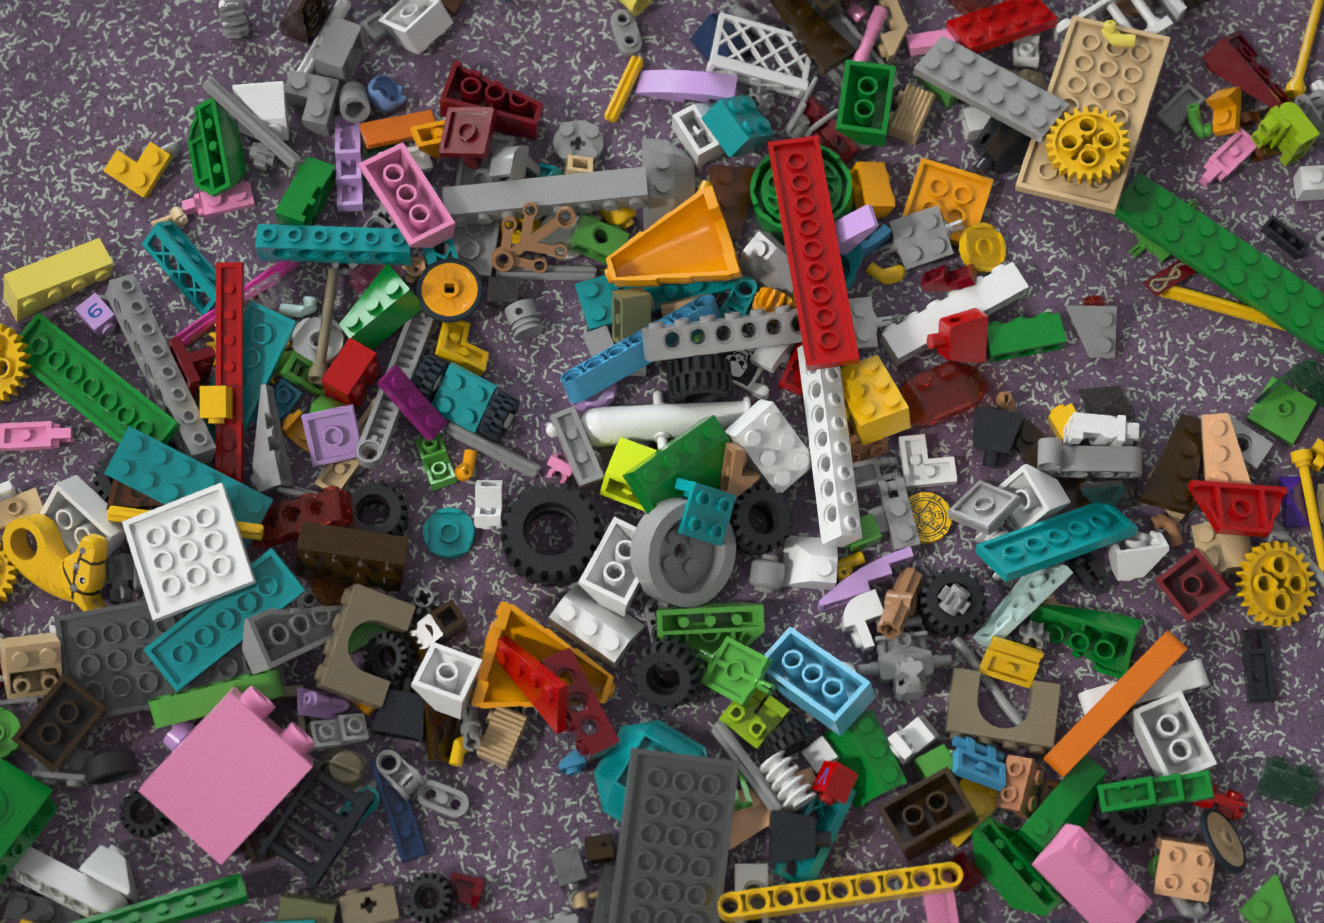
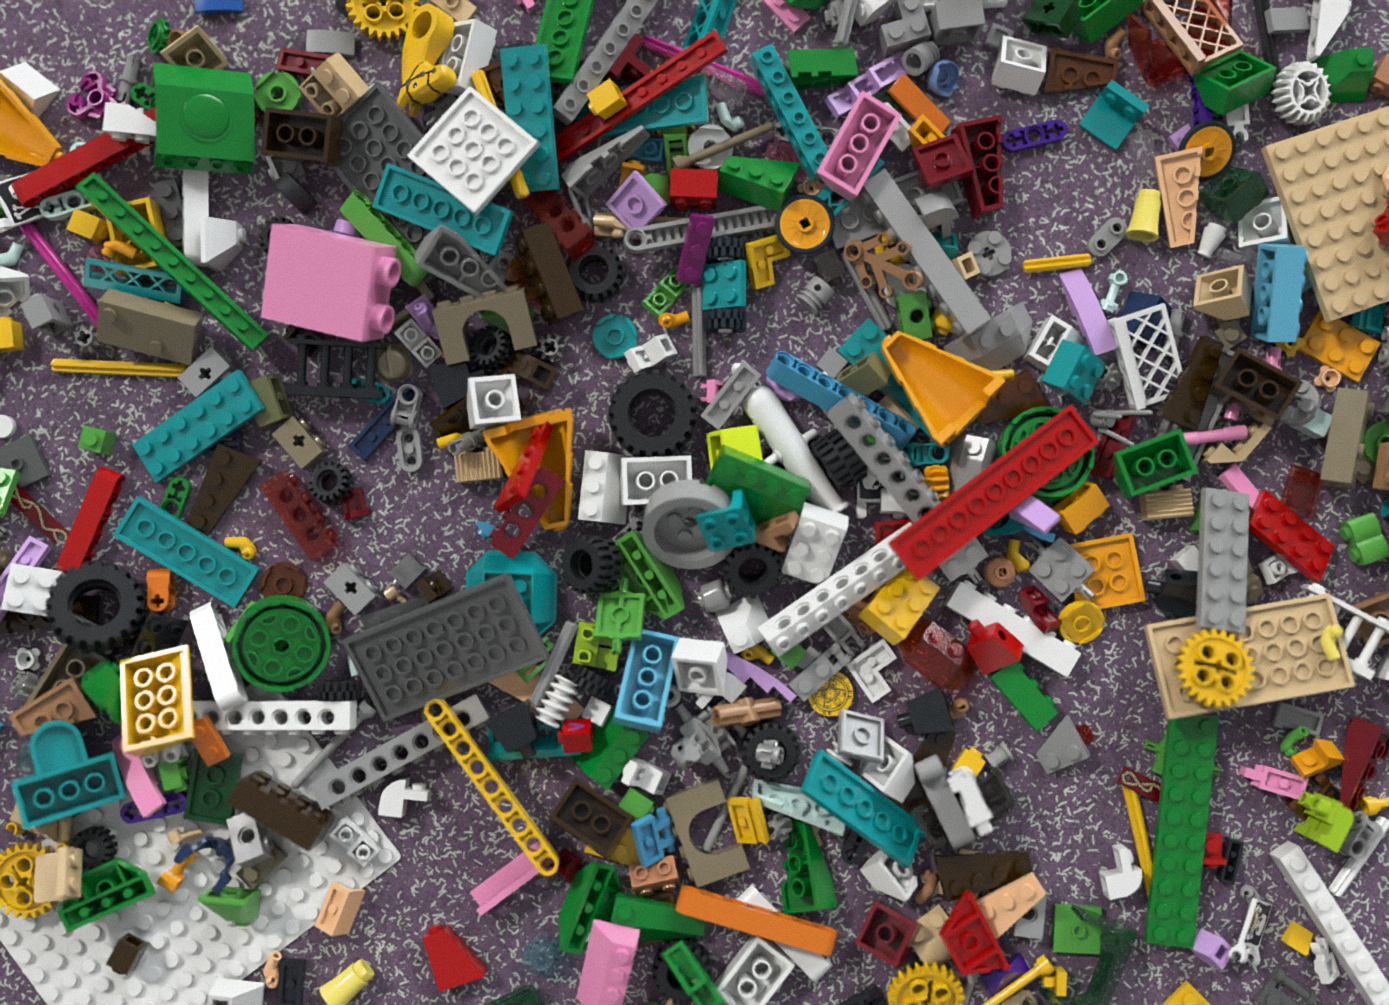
camera: 70 degrees right, 15 degrees up
(336, 469) = (611, 222): none -> tan arm
(488, 35) = (1051, 138): none -> dark purple beam
(671, 46) = (1115, 281): none -> light aqua bar
(830, 620) = (700, 666): none -> white slope
(892, 295) = (991, 568): none -> nougat head
(1072, 388) = (999, 756): none -> light grey bush
(1253, 339) = (1124, 879): none -> white brick
(1268, 246) = (1213, 850): none -> red bracket

